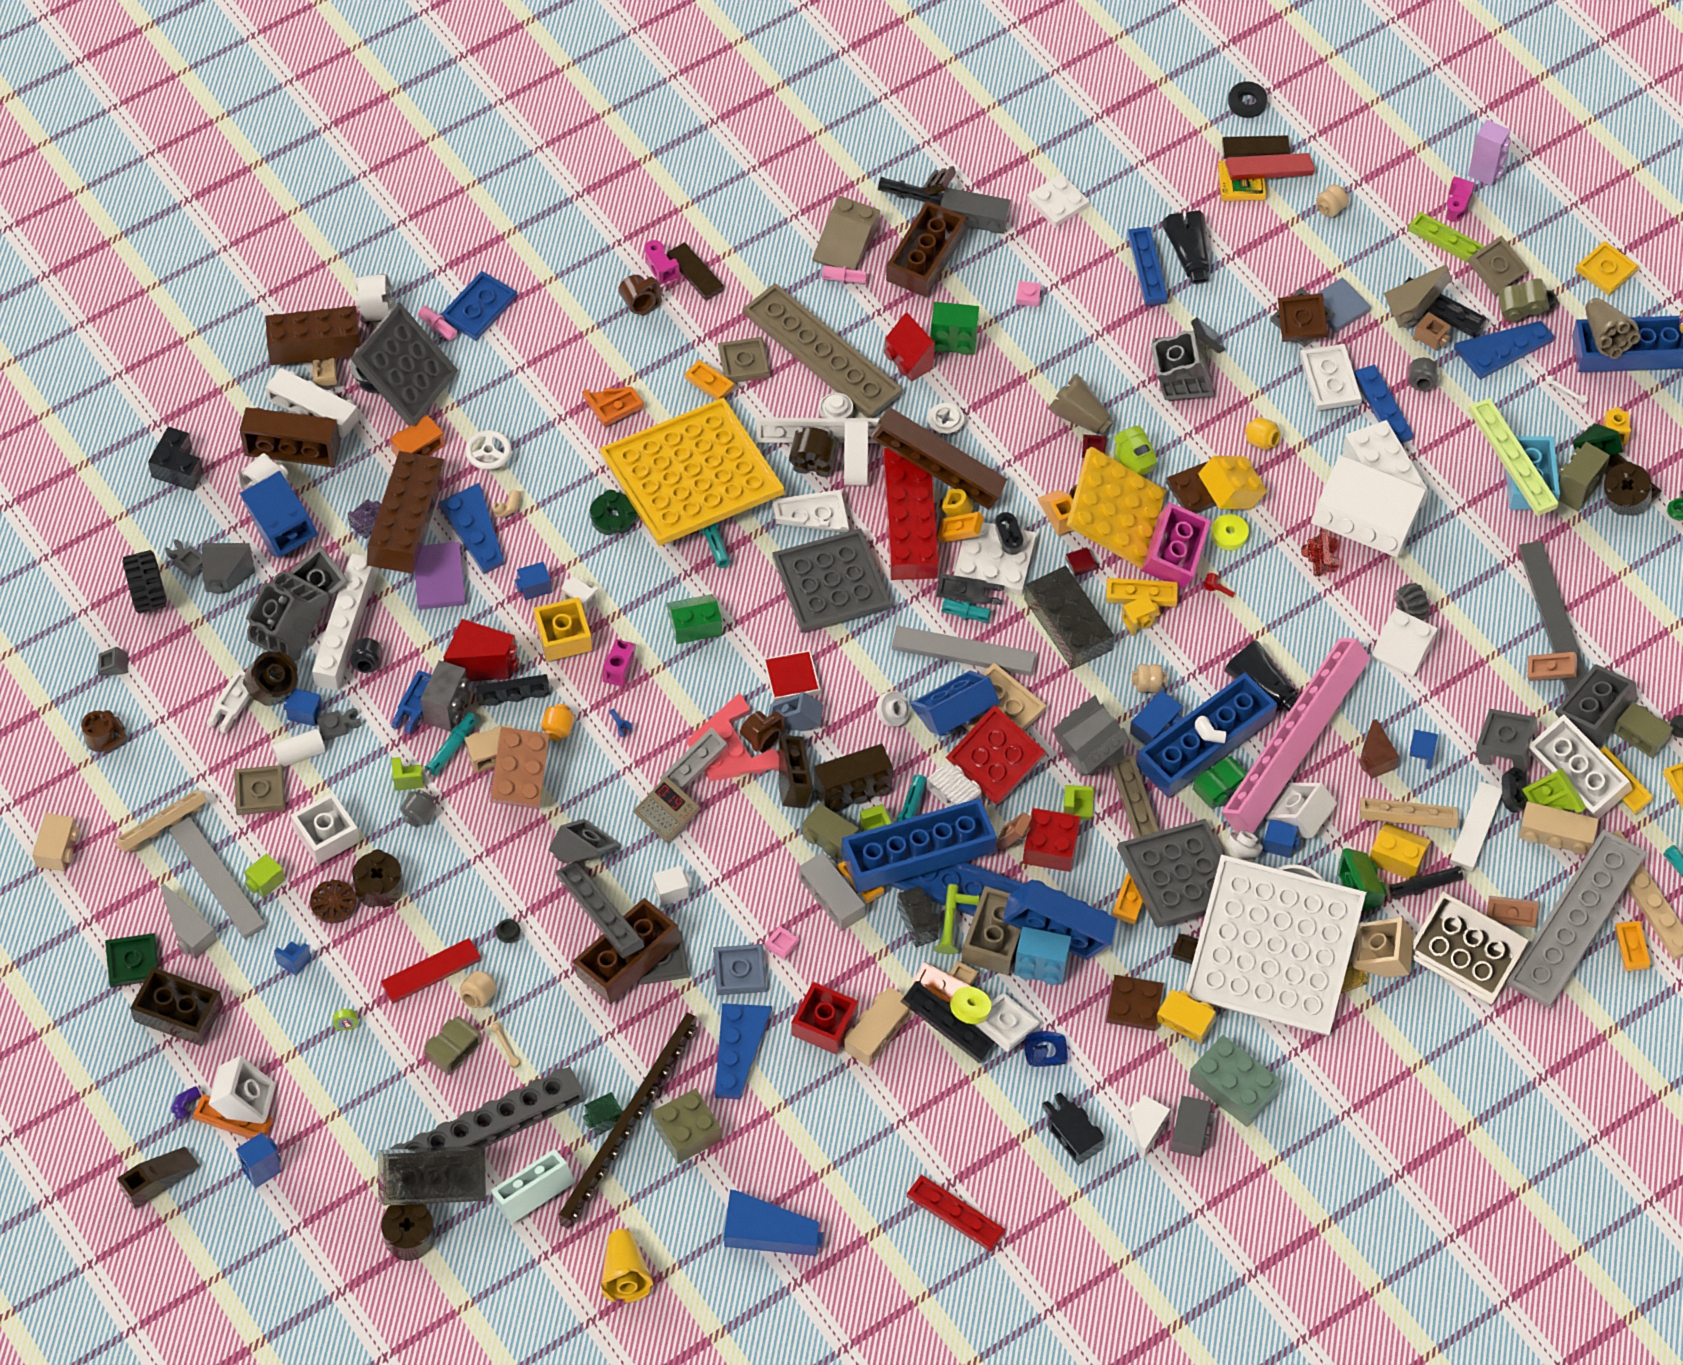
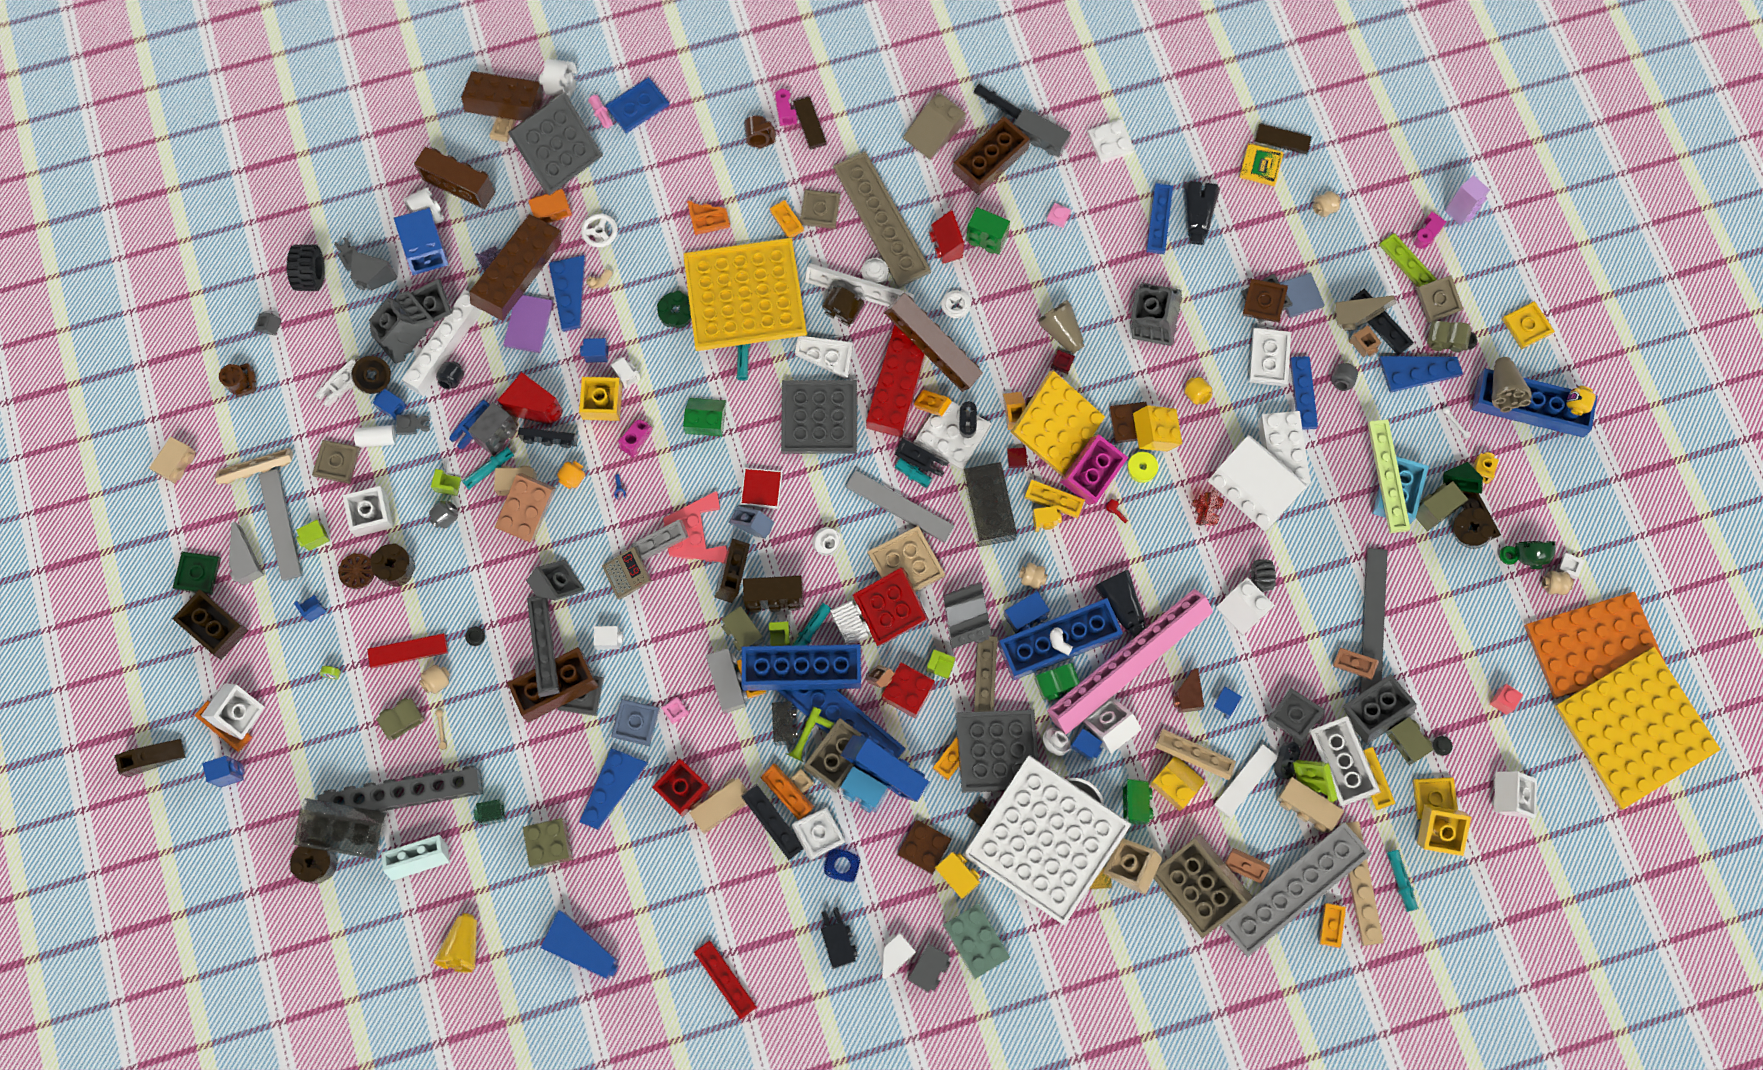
camera: 20 degrees right, 15 degrees up
(173, 462) = (364, 170): black brick -> none
(182, 1100) = (186, 705): dark purple arm -> none
(305, 397) = (483, 153): white brick -> none
(625, 1127) = (501, 829): dark brown plate -> none
(762, 730) = (720, 530): reddish brown piece -> none
(843, 274) = (921, 158): bright pink axle -> none
(856, 452) = (874, 315): white beam -> none
(940, 178) = (1022, 100): dark brown tile -> none
(956, 702) = (874, 553): blue slope -> none
(957, 503) = (937, 381): yellow plate -> none
(962, 1002) = (793, 806): neon yellow piece -> none
(1135, 450) = (1089, 379): lime helmet -> none
(1207, 335) = (1184, 294): black tile -> none
(1247, 88) = (1291, 106): black tyre -> none
(1269, 166) = (1287, 160): tile -> none
(1418, 884) = (1187, 817): black pin -> none

